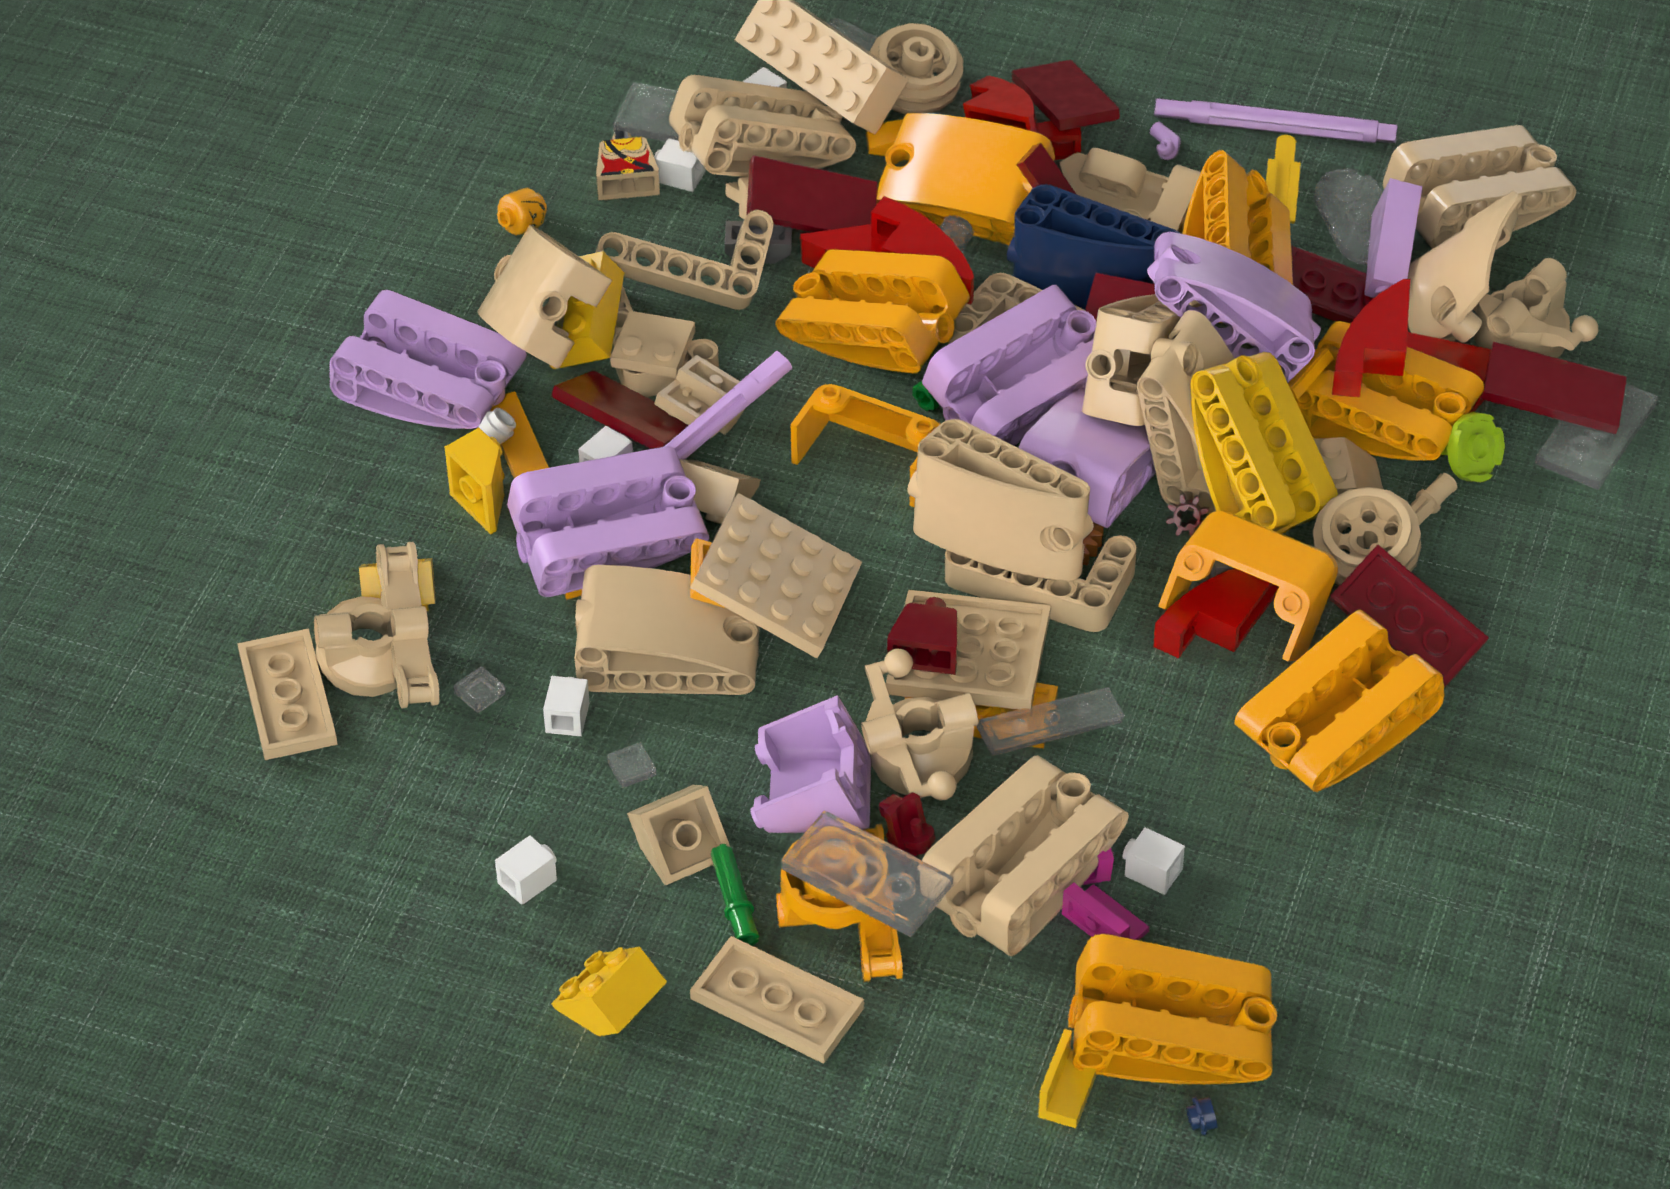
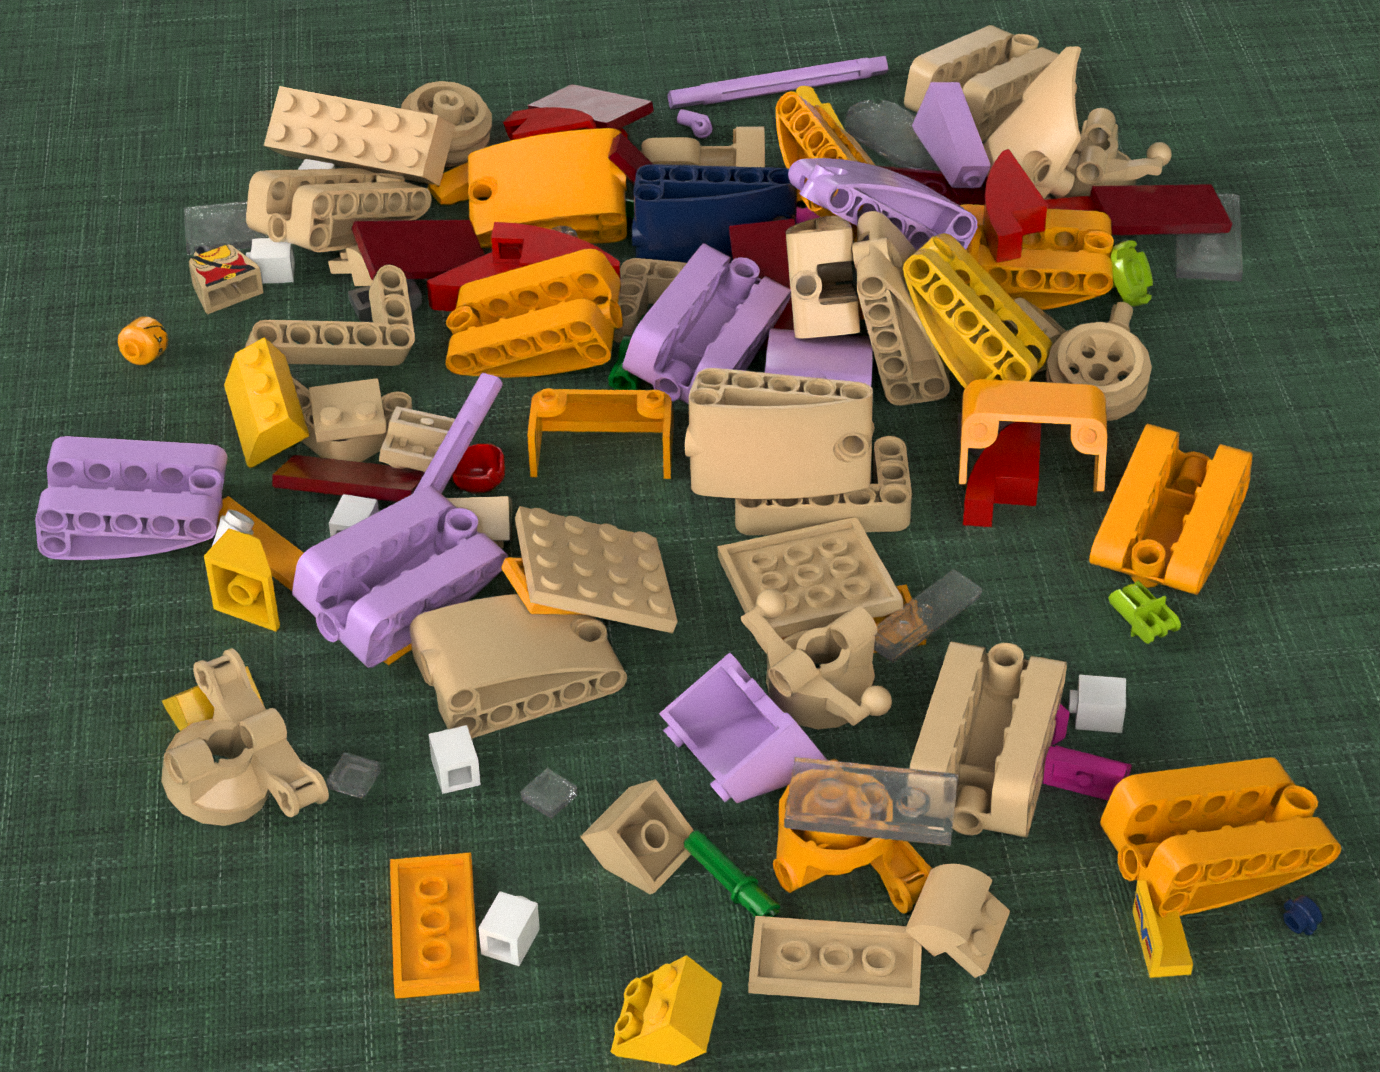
camera: 25 degrees left, 5 degrees down
(287, 694) = (157, 848): tan plate -> none
(472, 835) = (433, 925): none -> light orange tile
(523, 282) = (218, 389): tan panel -> none
(743, 440) = (480, 469): none -> red hair
(898, 1003) = (959, 916): none -> tan brick
(907, 824) = (861, 744): dark red hips -> none
(927, 635) = (779, 568): dark red torso -> none
(1183, 506) = (929, 396): dark red gear -> none
(1256, 796) = (1144, 612): none -> lime arm
(1411, 612) = (1199, 420): dark red tile -> none

